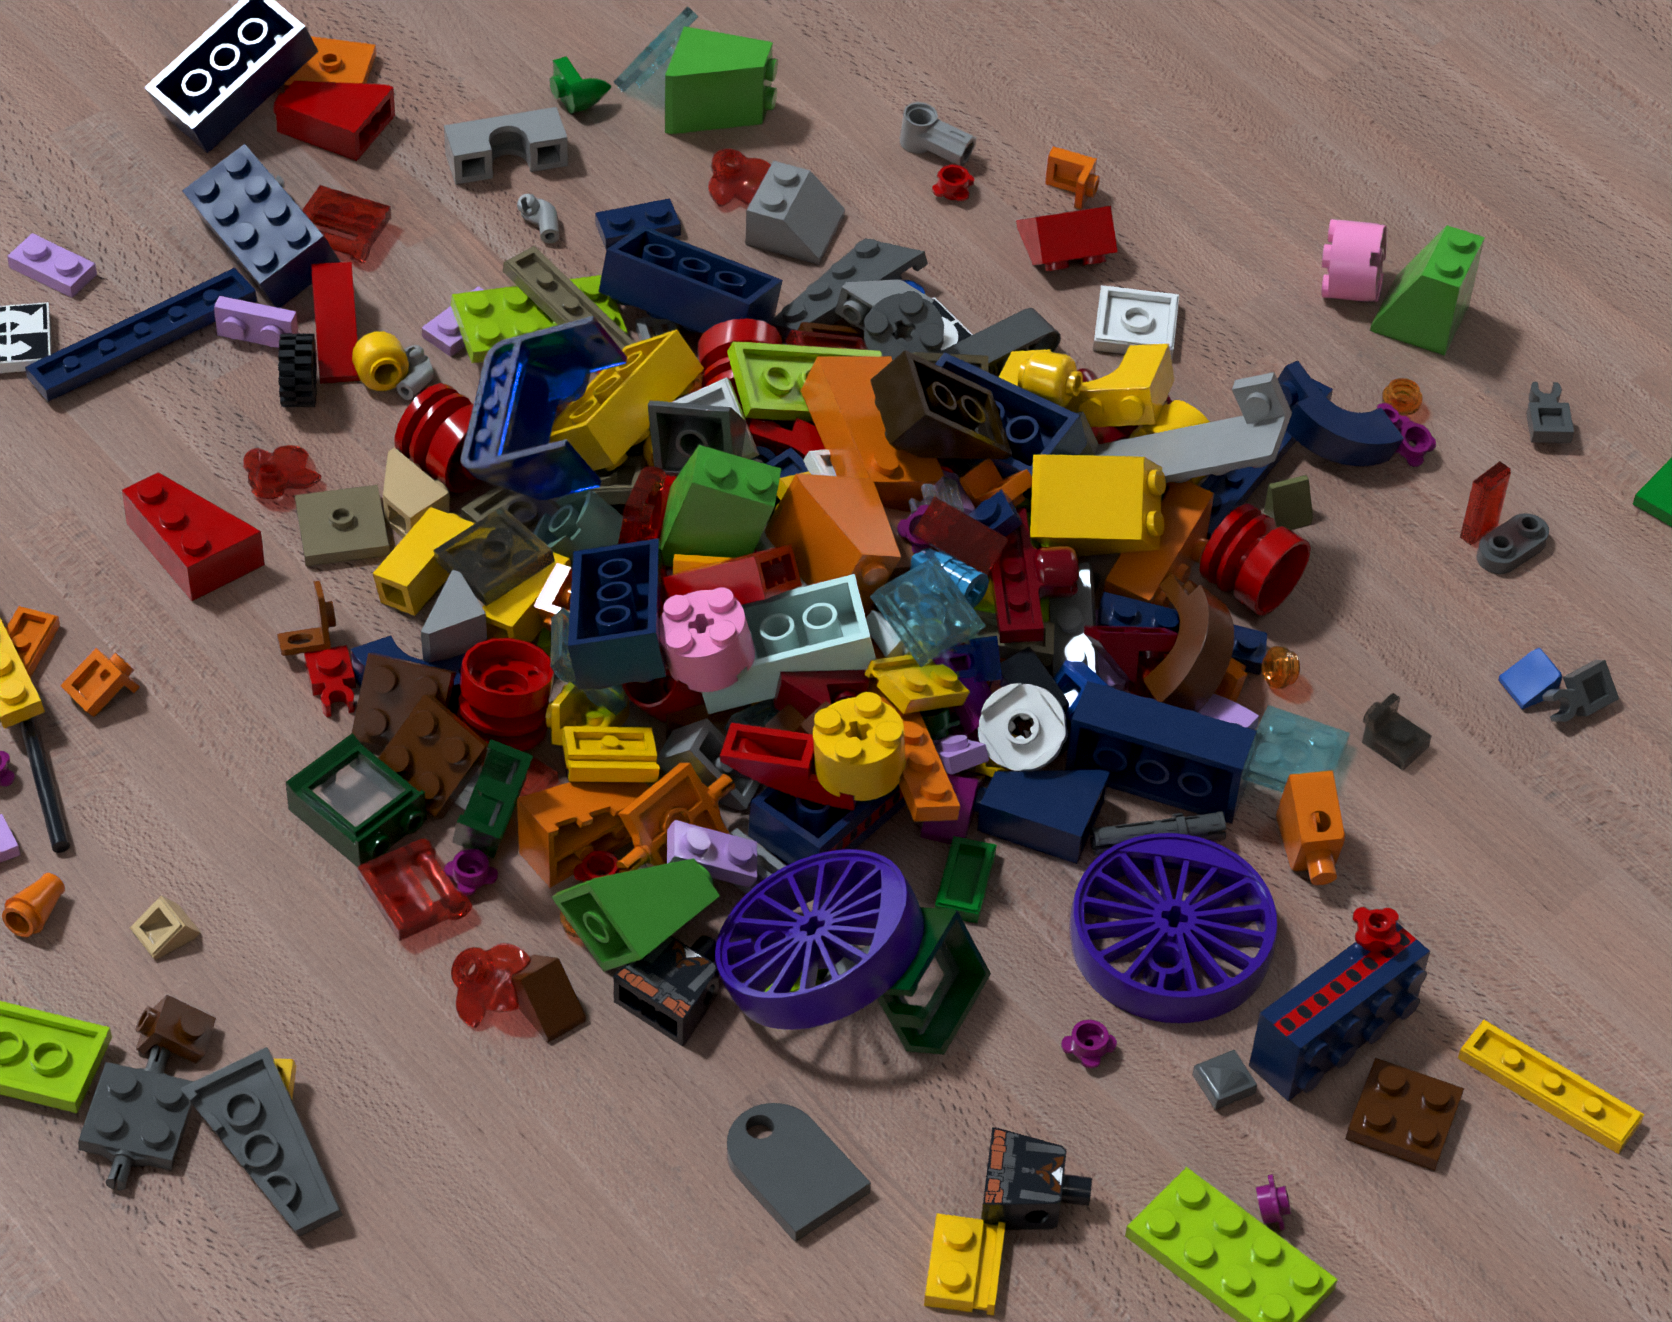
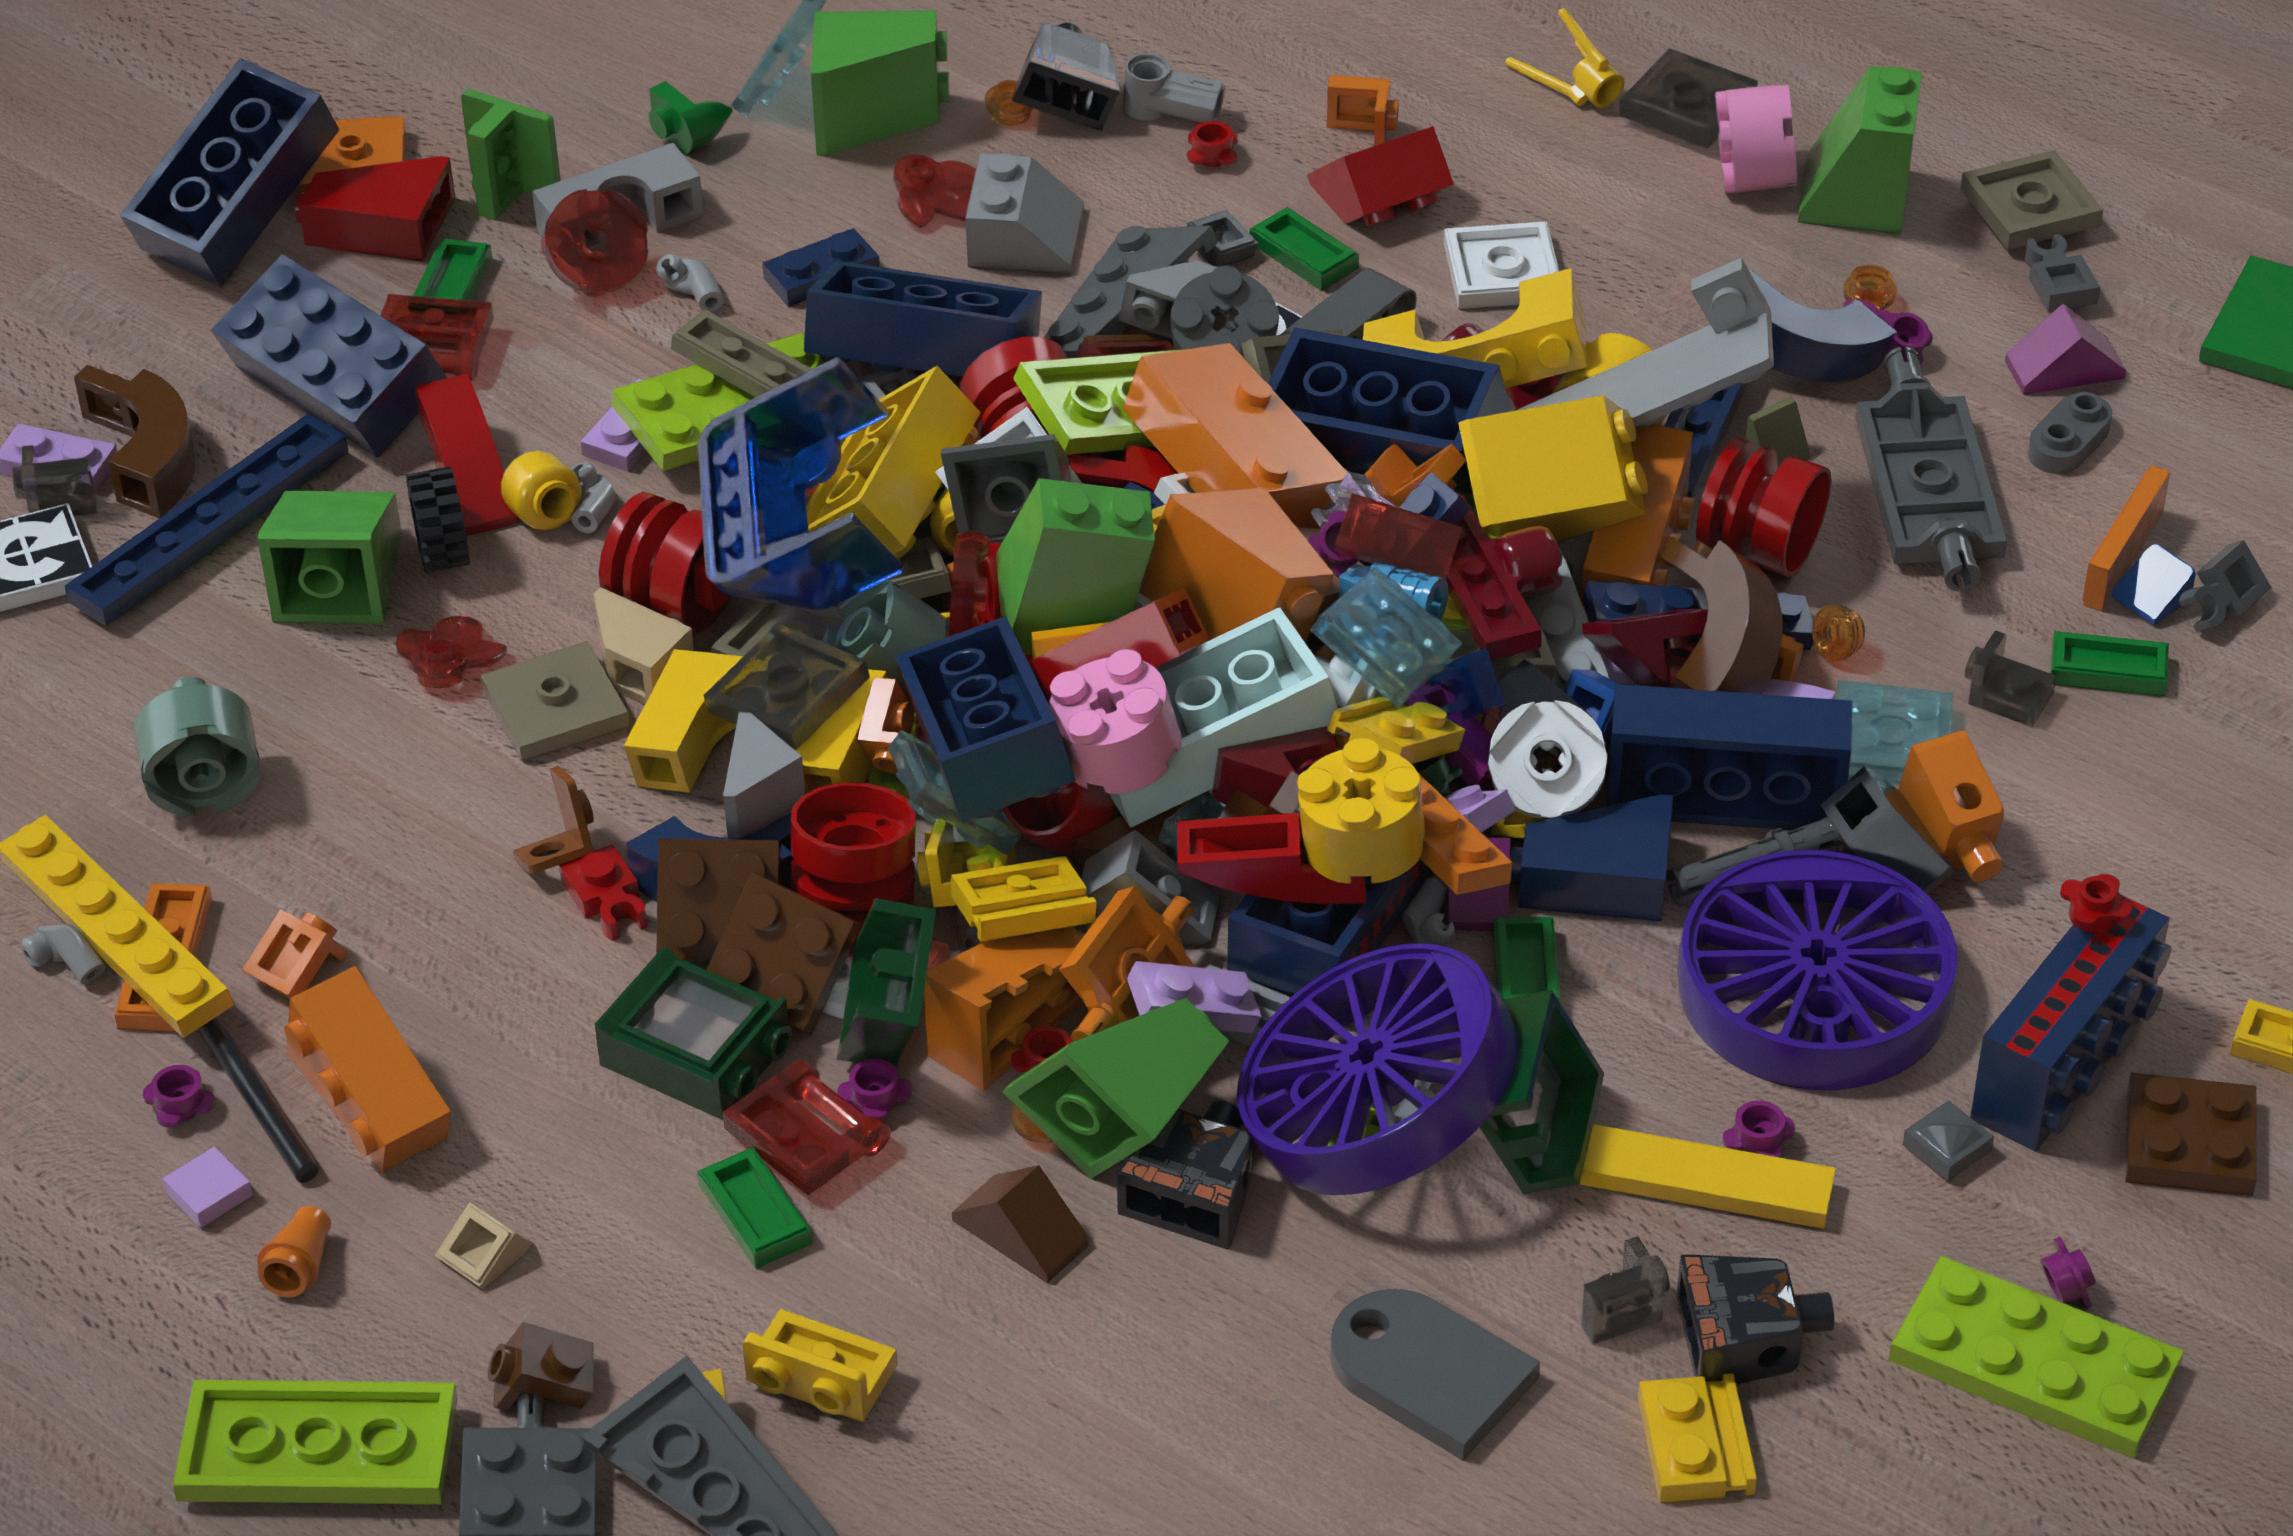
camera: 10 degrees left, 5 degrees down
(42, 286) = (55, 483): none -> clear smoke bracket
(76, 512) = (197, 748): none -> sand green brick
(117, 782) = (365, 1070): none -> orange wedge
(125, 276) = (160, 457): none -> reddish brown arch
(191, 536) = (358, 749): red wedge -> none
(216, 381) = (330, 556): none -> bright green slope
(253, 321) = (358, 470): lavender plate -> none
(360, 941) = (754, 1207): none -> green tile
(364, 1070) = (819, 1365): none -> yellow bracket
(374, 175) = (455, 270): none -> green tile
(434, 91) = (508, 150): none -> bright green bracket
(481, 152) = (595, 271): none -> clear red plate
(490, 983) = (951, 1221): clear red plate -> none
(816, 119) = (1002, 108): none -> clear orange plate
(862, 108) = (1069, 76): none -> black torso
(903, 831) = (1423, 916): none -> light grey arm
(937, 412) = (1317, 392): dark brown slope -> none
(940, 261) = (1233, 239): none -> dark grey tile
(948, 1150) = (1626, 1298): none -> clear smoke bracket
(994, 279) = (1304, 248): none -> green tile
(1041, 1068) = (1708, 1176): none -> yellow tile
(1051, 377) = (1443, 327): yellow head -> none
(1253, 183) = (1592, 75): none -> yellow plant
(1258, 833) = (1886, 830): none -> black slope
(1308, 209) = (1680, 97): none -> clear smoke plate
(1393, 557) = (1929, 475): none -> dark grey plate
(1476, 733) = (2110, 663): none -> green tile
(1485, 503) = (2027, 387): clear red tile -> none
(1522, 637) = (2125, 537): none -> orange tile
(1537, 480) = (2062, 355): none -> slope
(1549, 349) = (2031, 199): none -> dark tan plate

